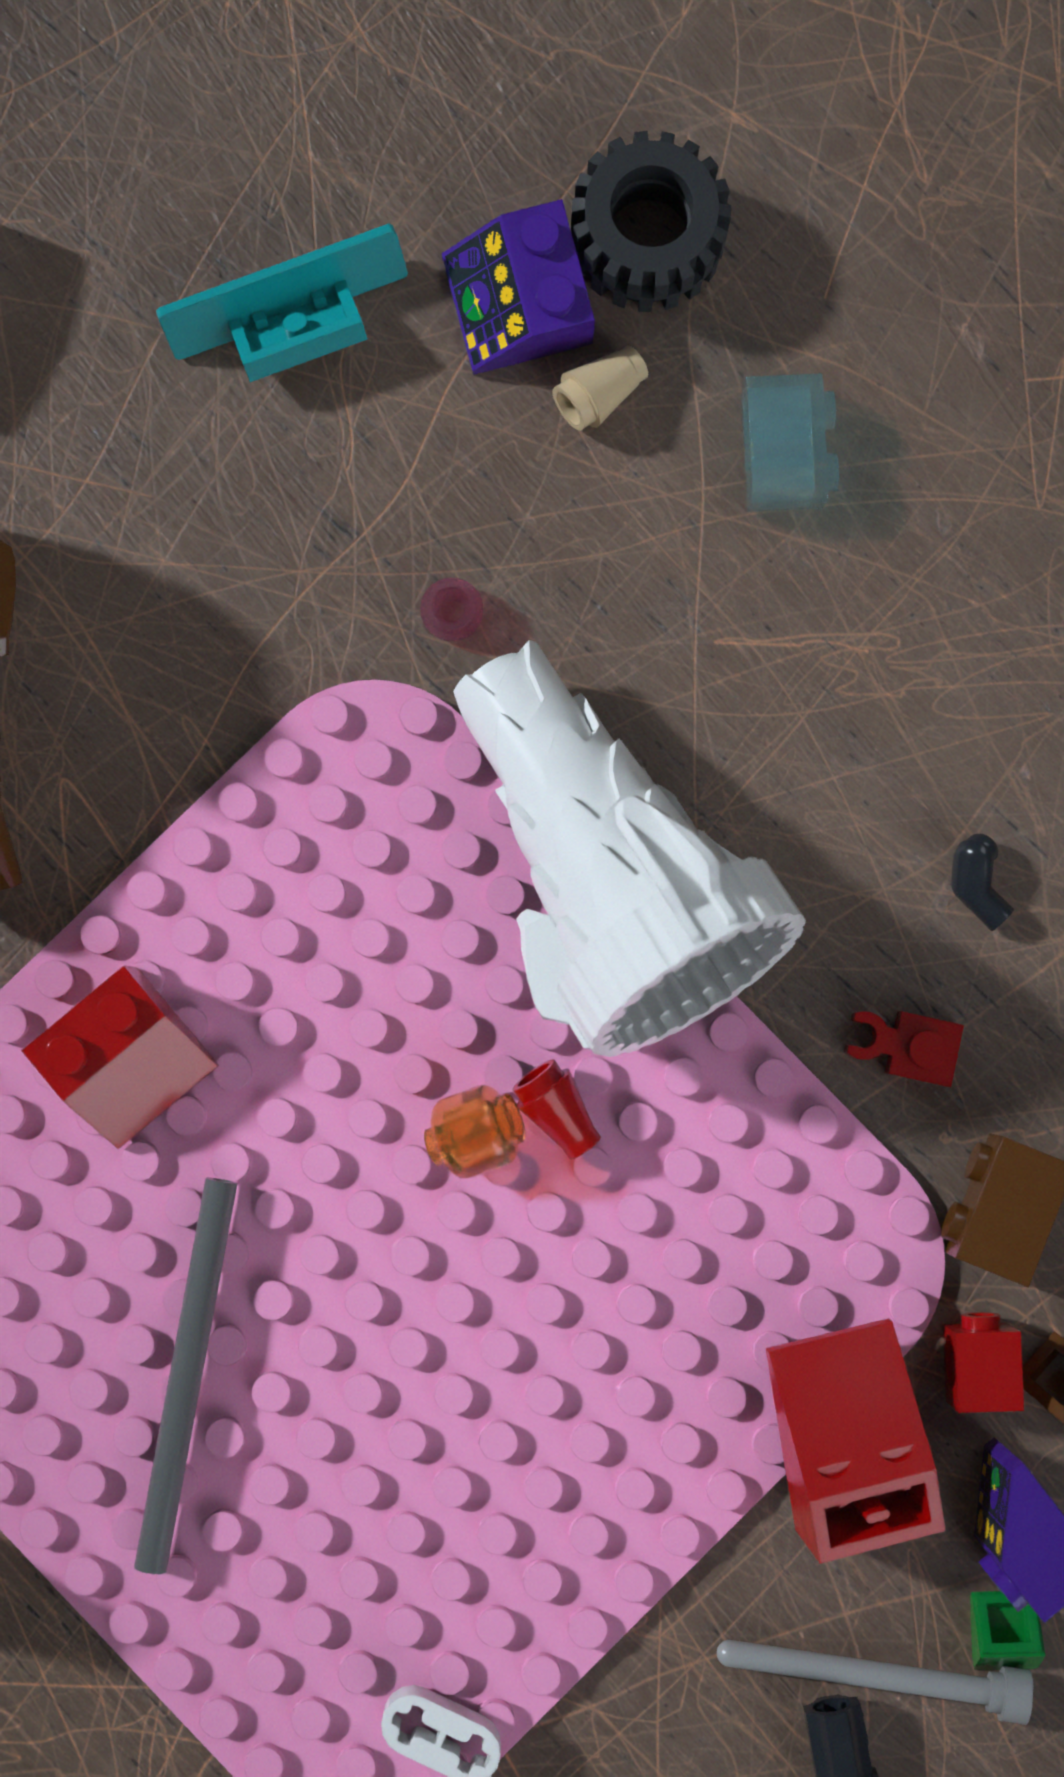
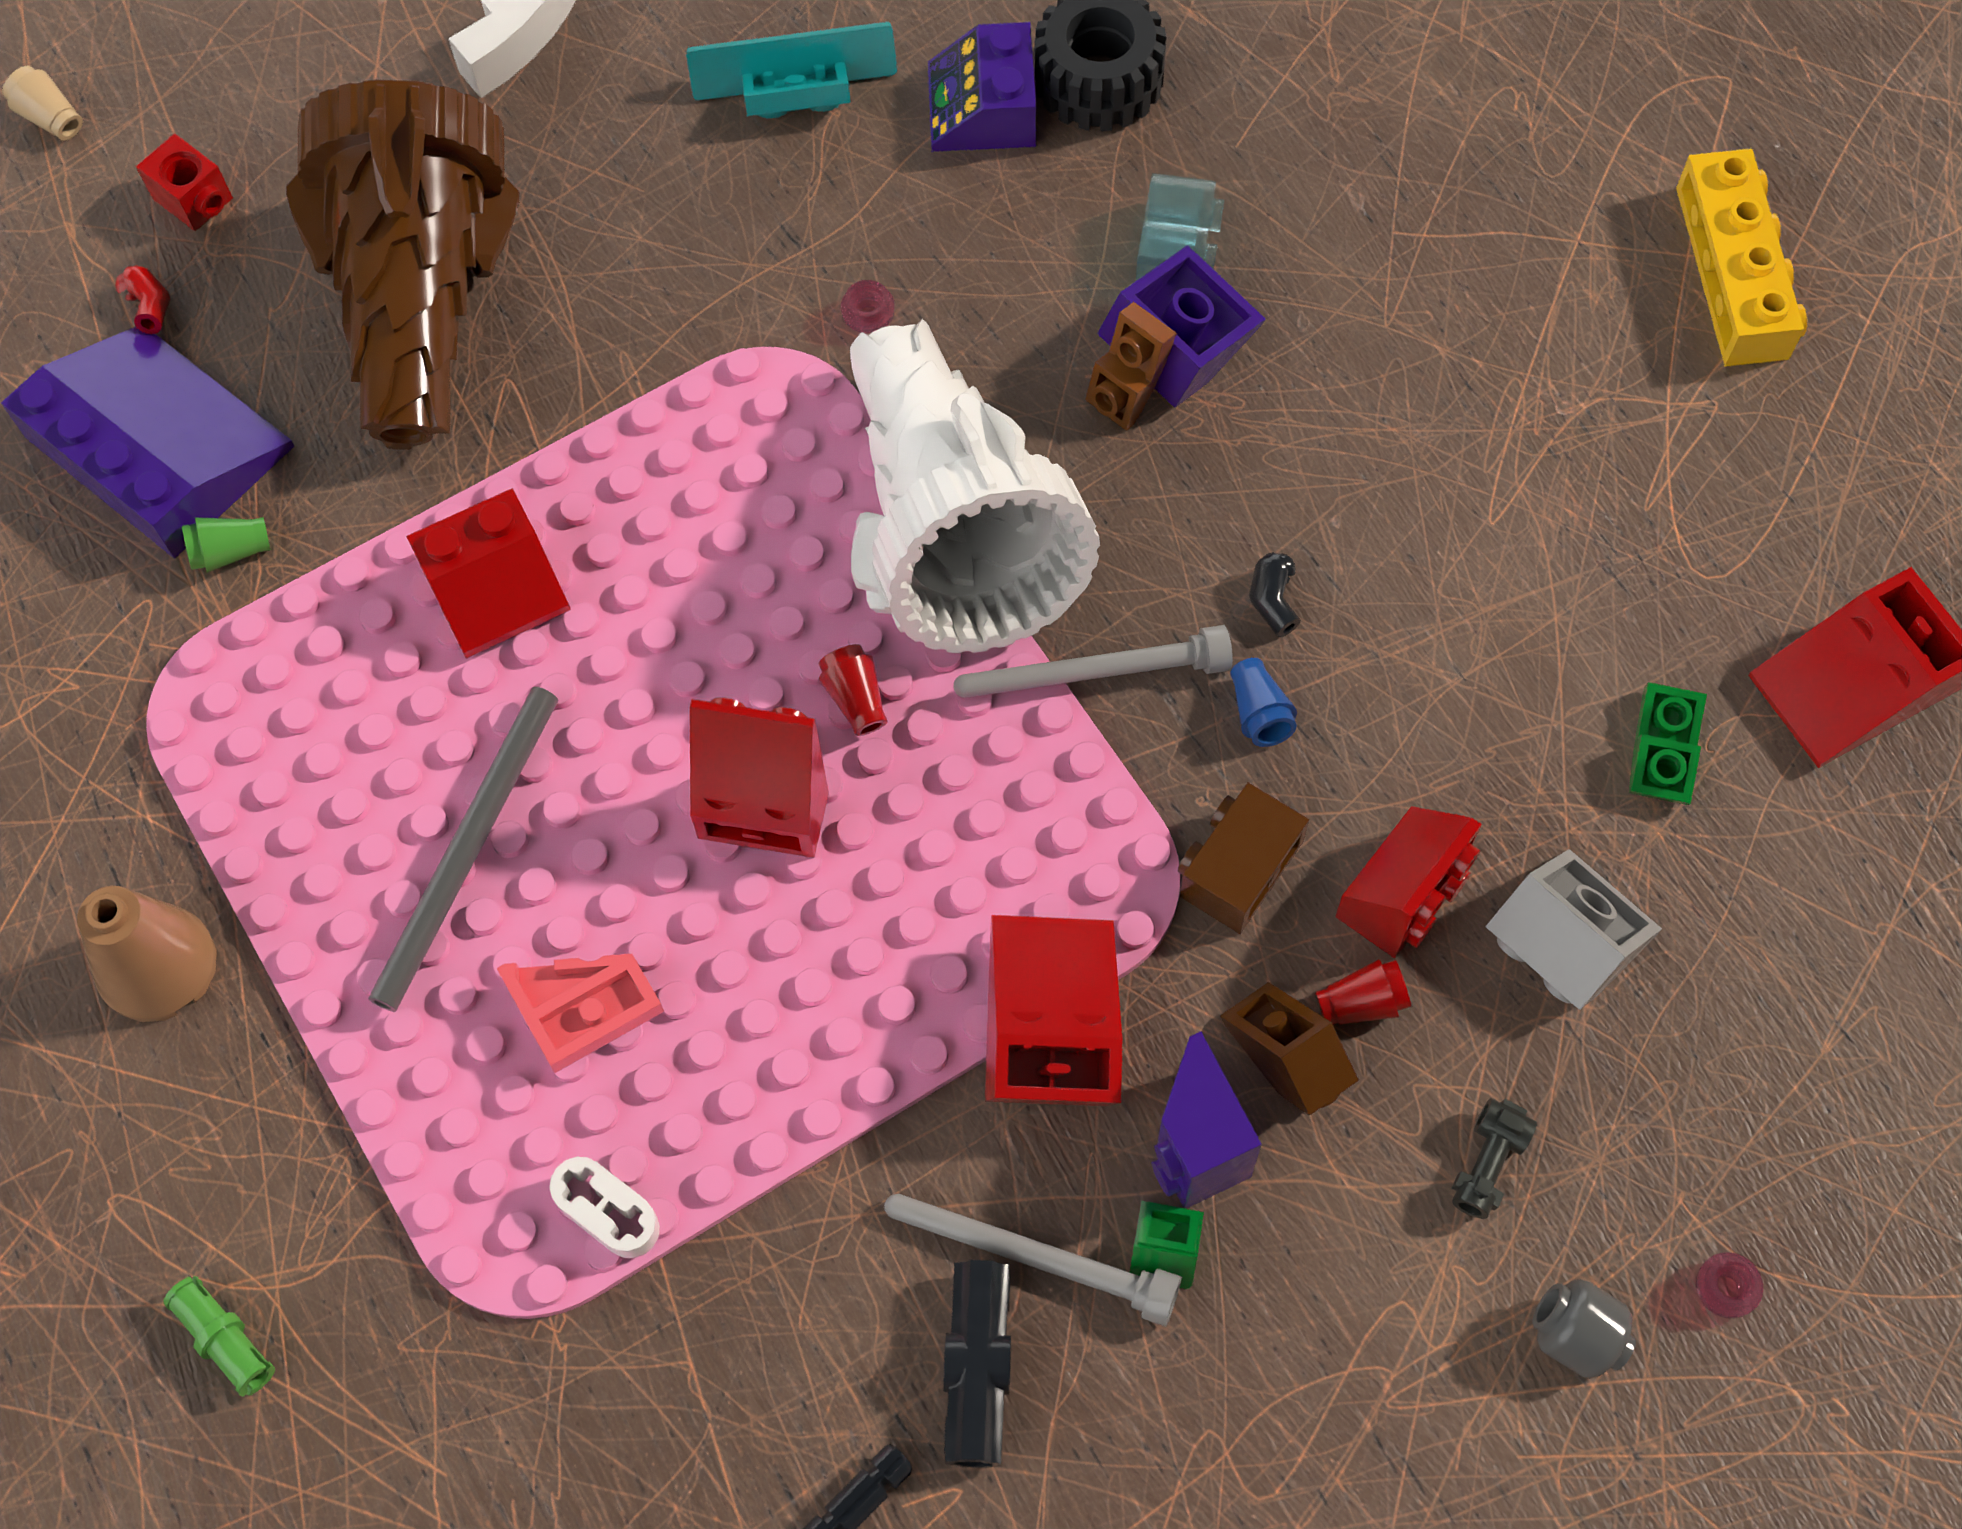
camera: 15 degrees right, 20 degrees down
(357, 1528) = (580, 1003): none -> coral wing
(475, 1131) = (778, 681): clear orange head -> none
(488, 1266) = (756, 777): none -> red slope
(599, 387) = (1030, 169): tan cone -> none
(774, 645) = (1132, 367): none -> dark orange slope
(819, 575) = (1202, 310): none -> dark purple slope
(915, 1047) = (1189, 717): red plate -> none
(922, 970) = (1206, 651): none -> light grey piece
(983, 1364) = (1192, 986): red brick -> none
(992, 1021) = (1262, 706): none -> blue cone

